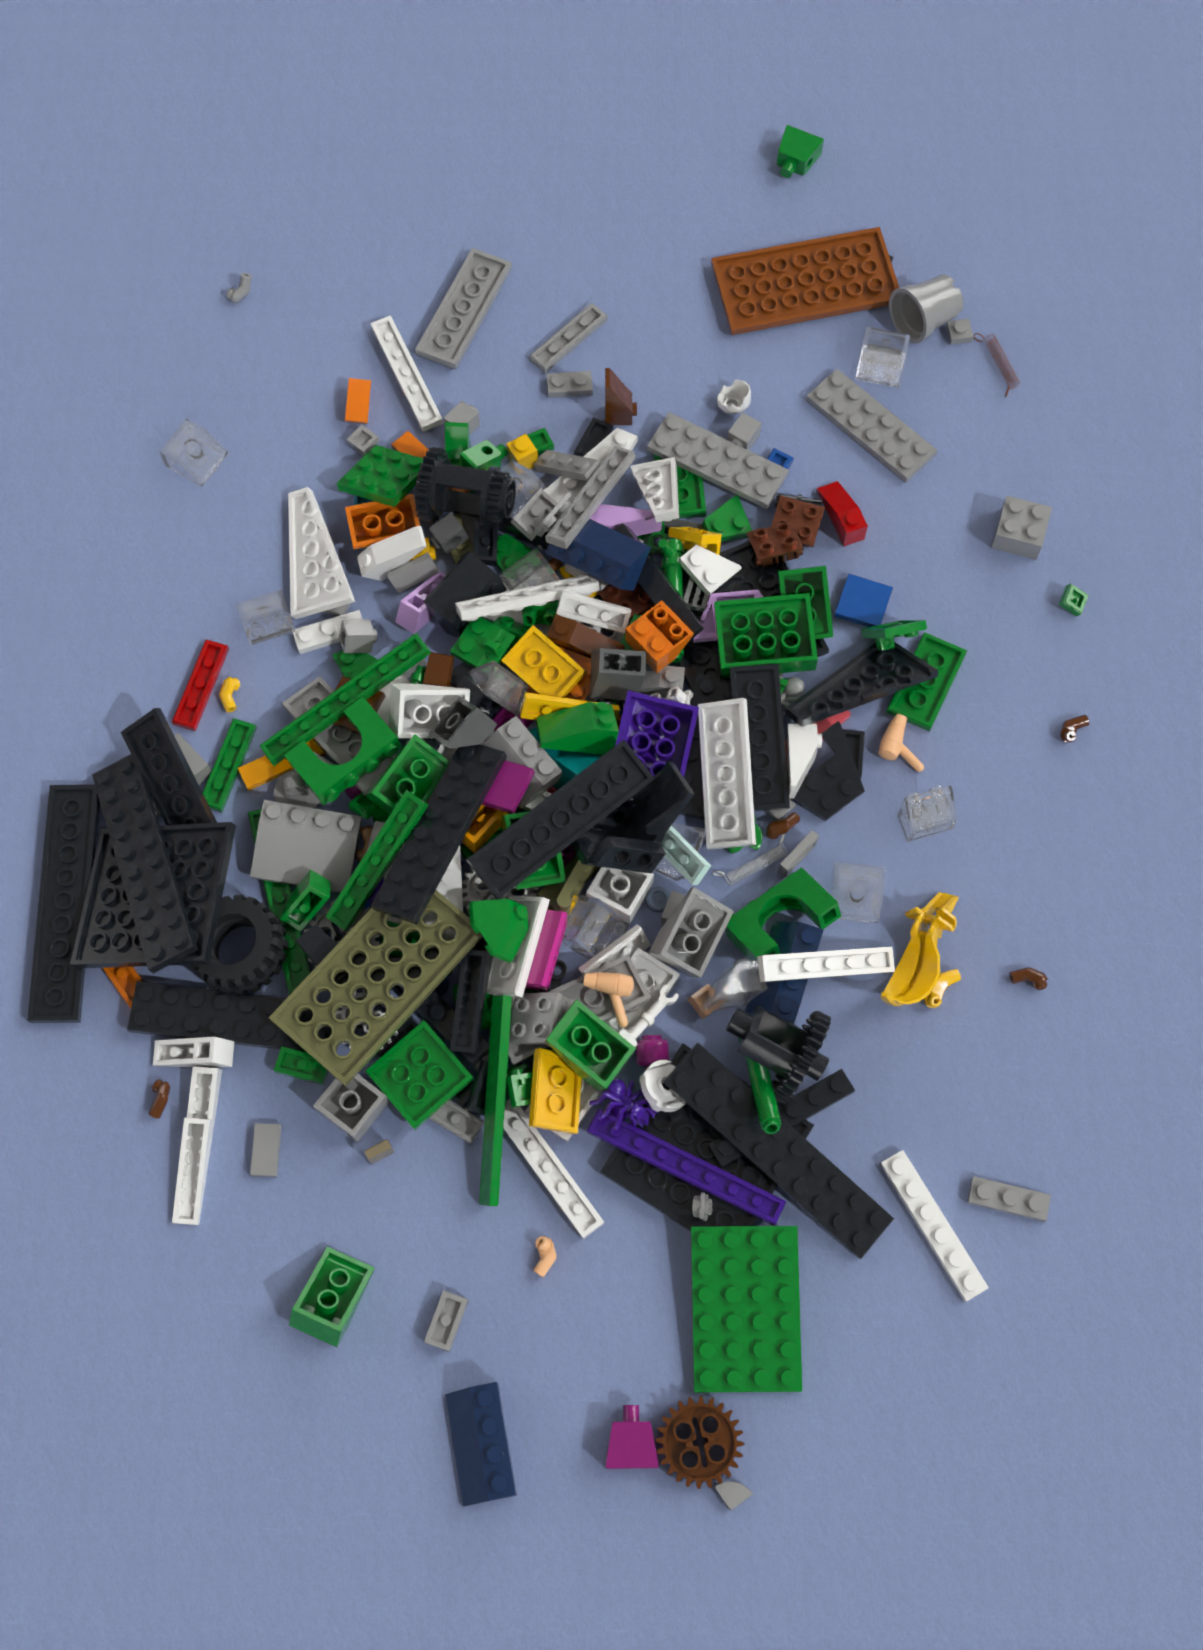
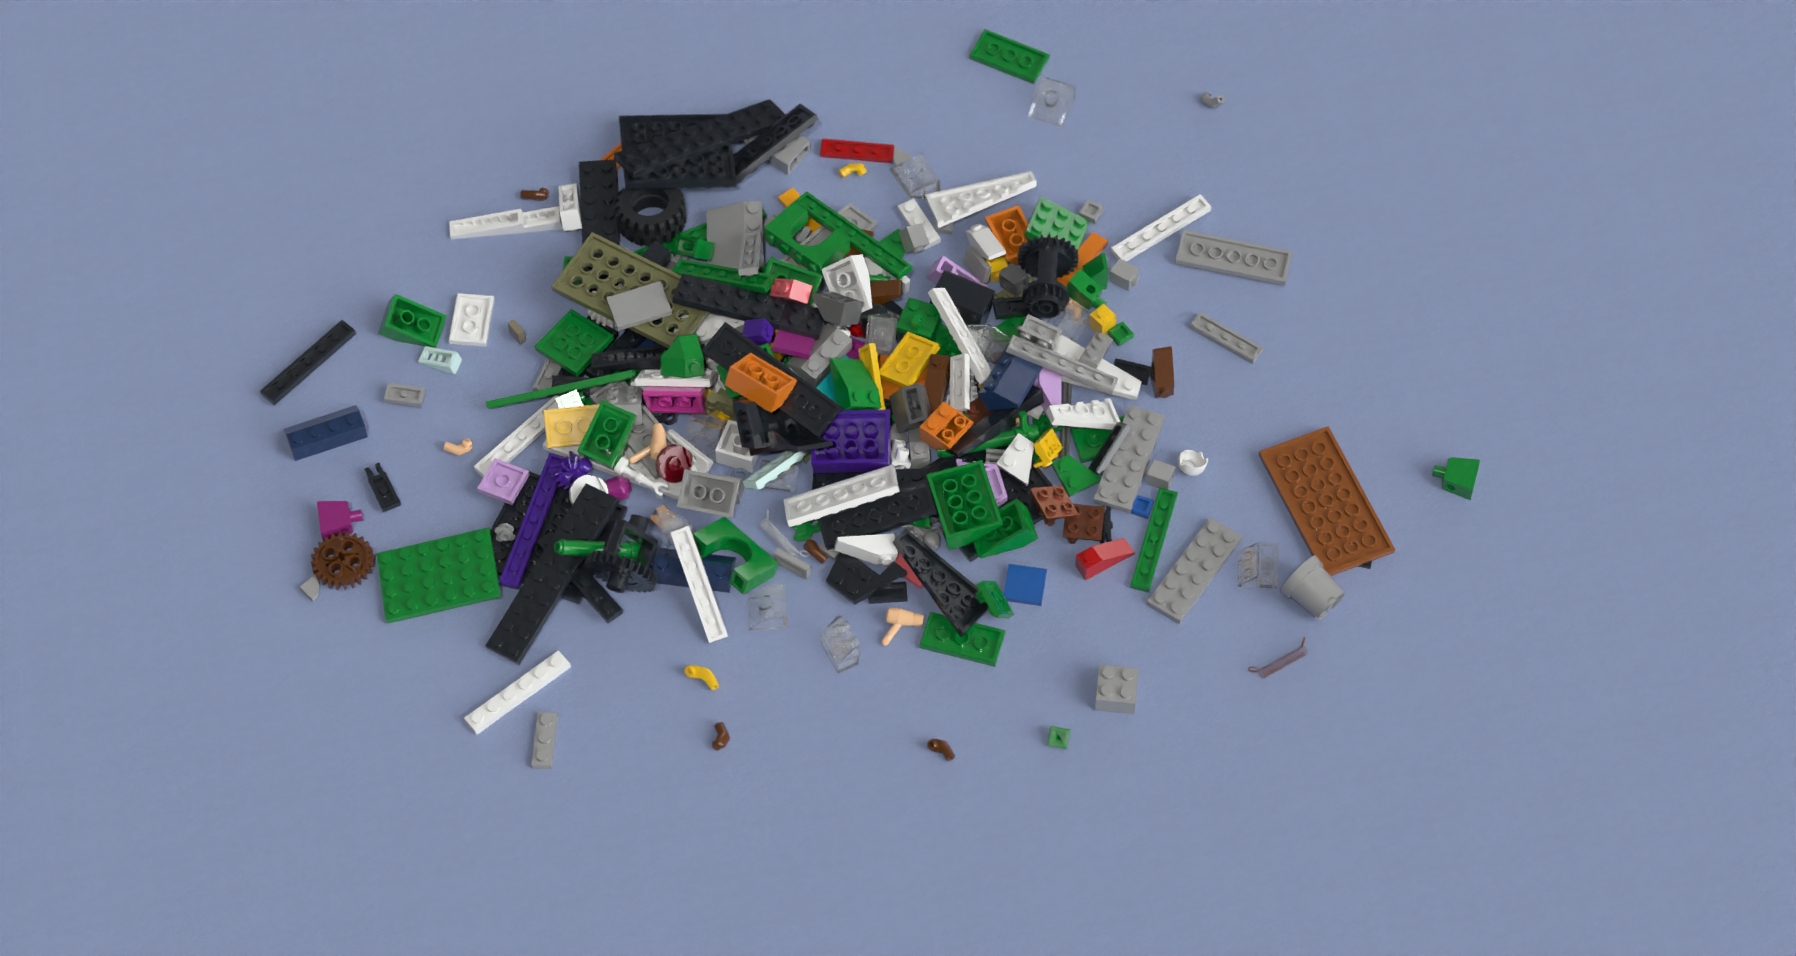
camera: 80 degrees right, 10 degrees down
(65, 876) = (700, 98): black plate -> none
(109, 490) = (1009, 56): none -> green tile
(227, 764) = (799, 181): green tile -> none
(228, 636) = (900, 156): none -> light grey tile
(266, 1150) = (508, 265): light grey tile -> none
(341, 1212) = (471, 320): none -> white tile
(352, 1107) = (544, 306): light grey brick -> none
(356, 818) = (750, 253): none -> light grey plate
(358, 401) = (1127, 199): orange slope -> none
(362, 1457) = (307, 362): none -> black plate
(394, 1250) = (450, 365): none -> light aqua slope
(406, 970) = (639, 306): none -> light grey tile
(430, 774) = (791, 290): none -> coral slope
(485, 823) = (758, 331): none -> dark purple brick
(569, 384) = (1181, 345): light grey plate -> none
(570, 829) = (760, 382): none -> orange slope
(591, 1371) = (382, 489): none -> black hinge
(620, 1198) = (503, 481): none -> lavender plate
(641, 970) = (672, 462): none -> dark red tile
(704, 474) = (1109, 448): none -> black tile
(825, 458) = (1154, 540): none -> green tile
(920, 963) = (715, 657): yellow piece -> none
(959, 331) = (1306, 626): light grey plate -> none

